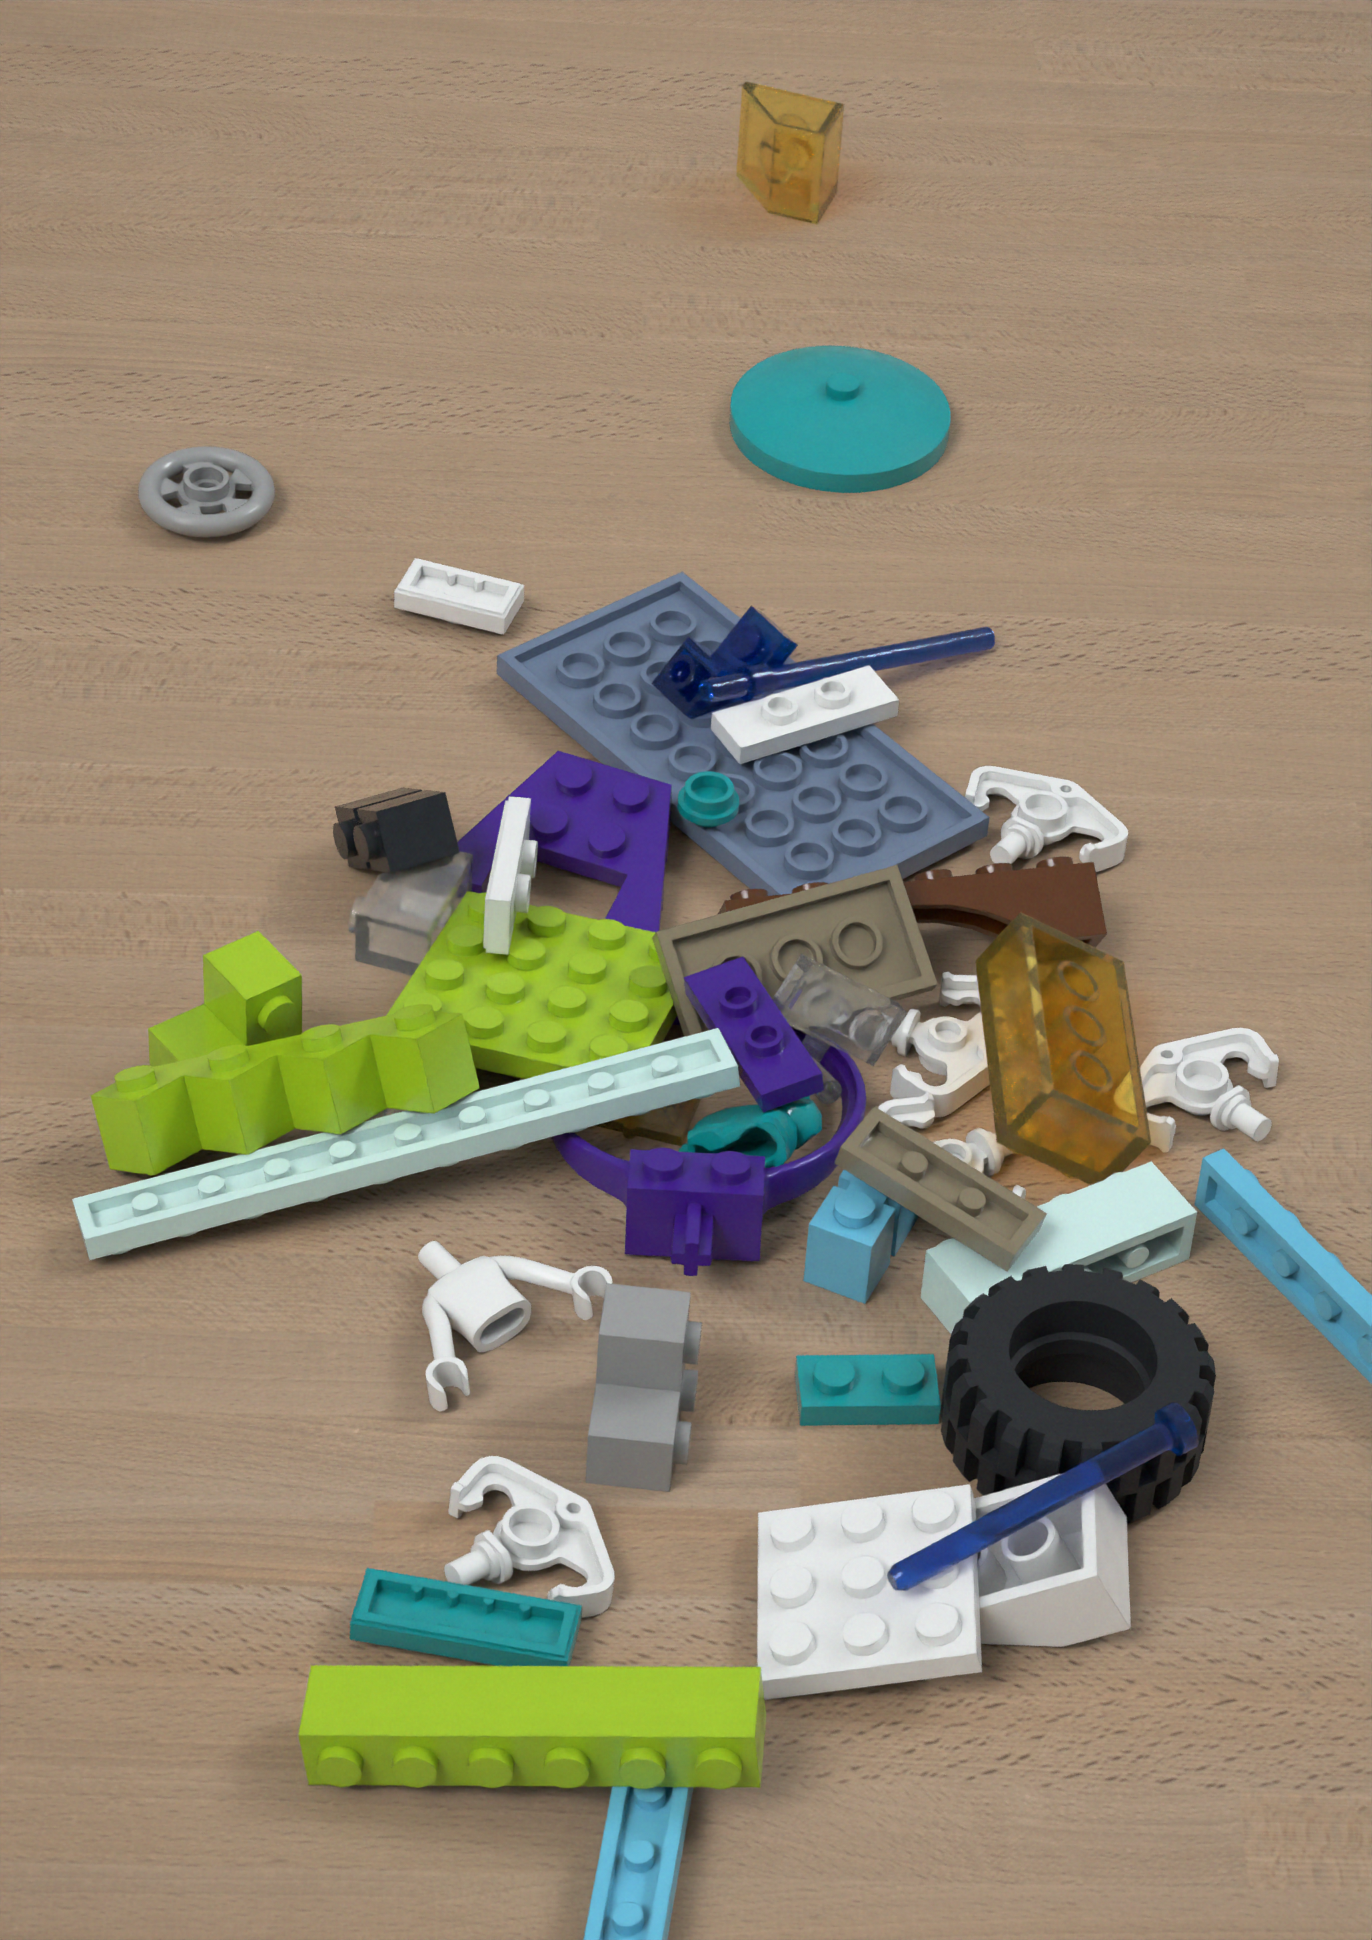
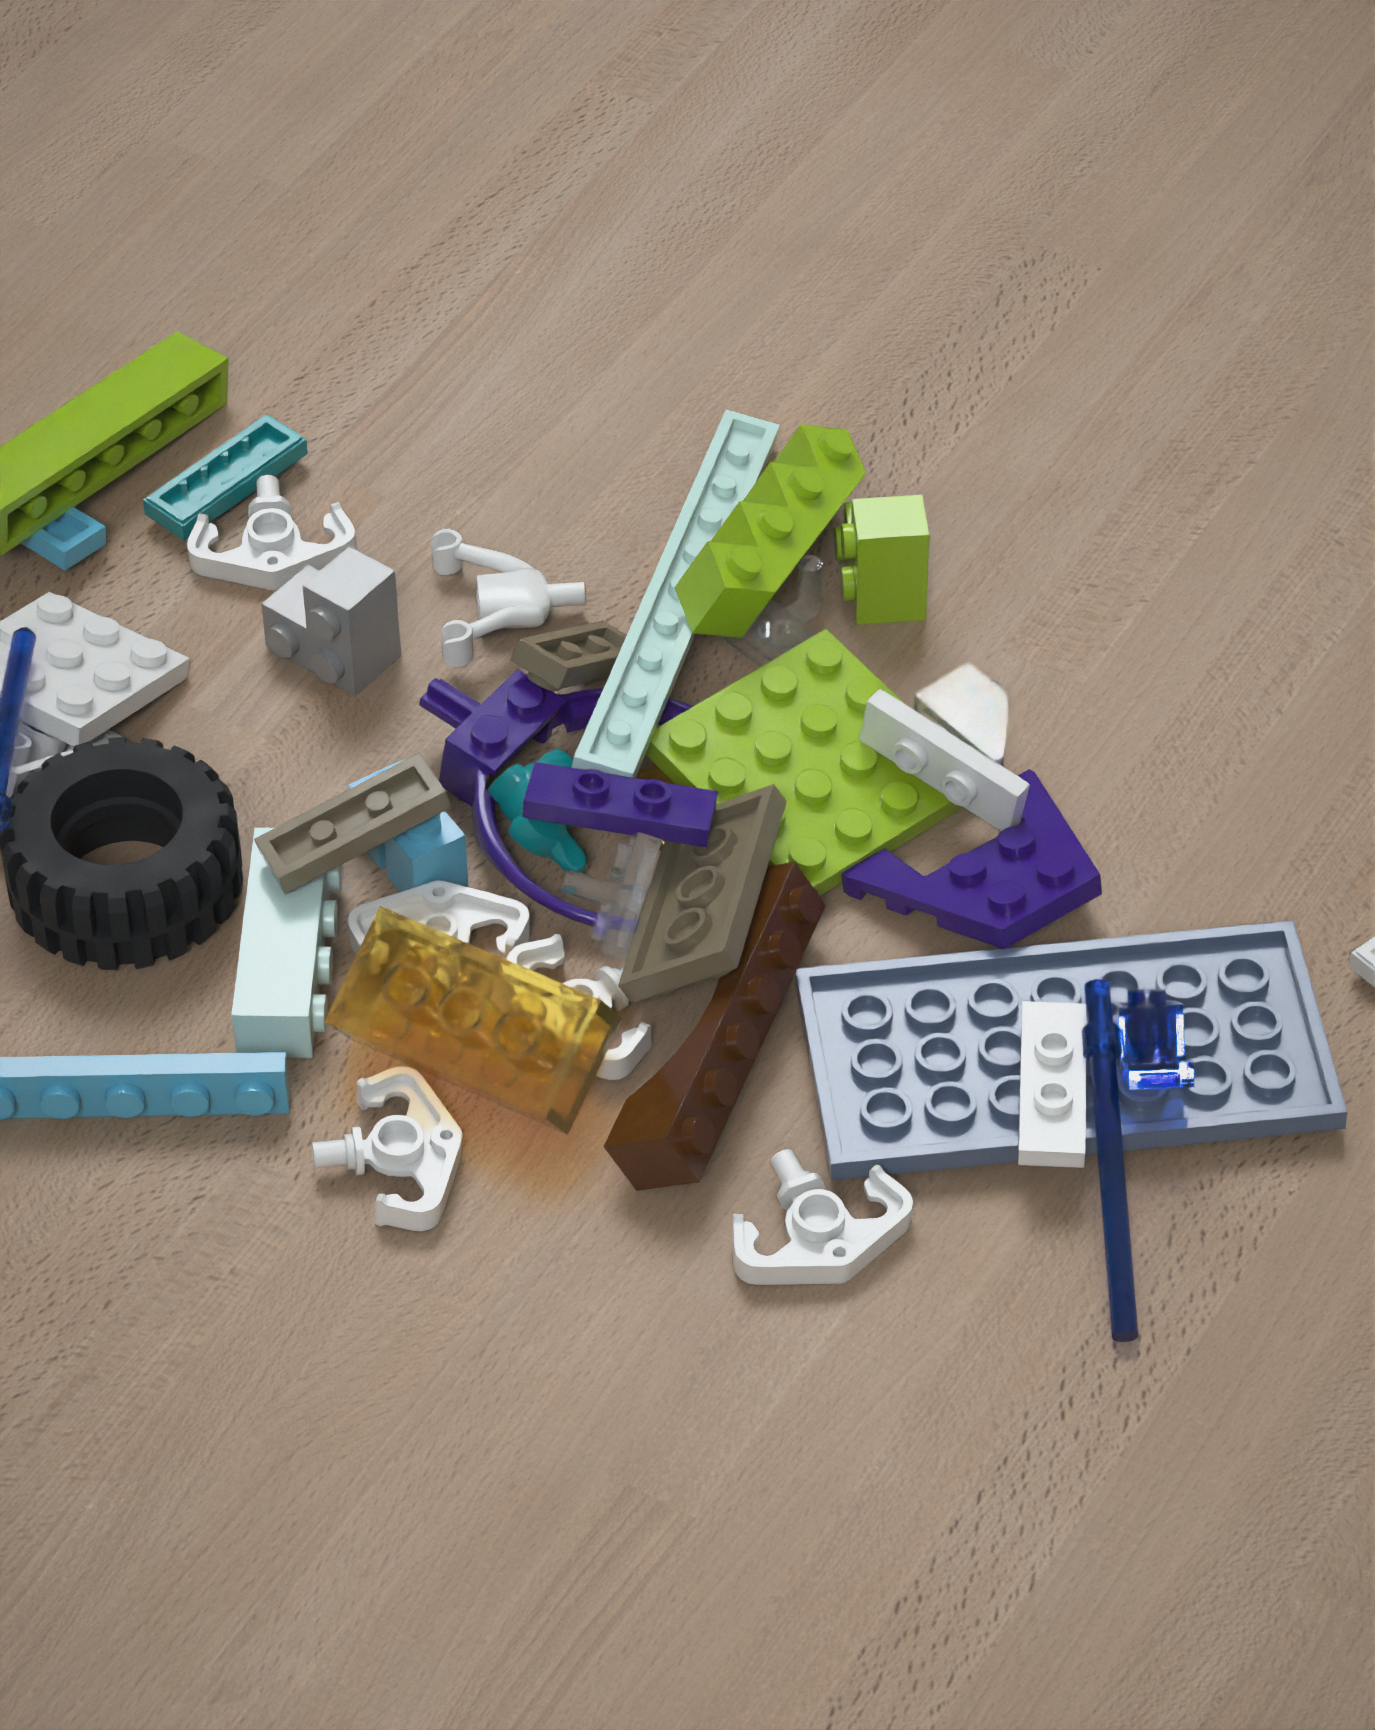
camera: 125 degrees right, 5 degrees up
(395, 830) = (1084, 731): black piece -> none
(557, 1170) = (569, 655): none -> dark tan plate
(708, 799) = (968, 950): teal plate -> none
(867, 1389) = (267, 776): teal plate -> none

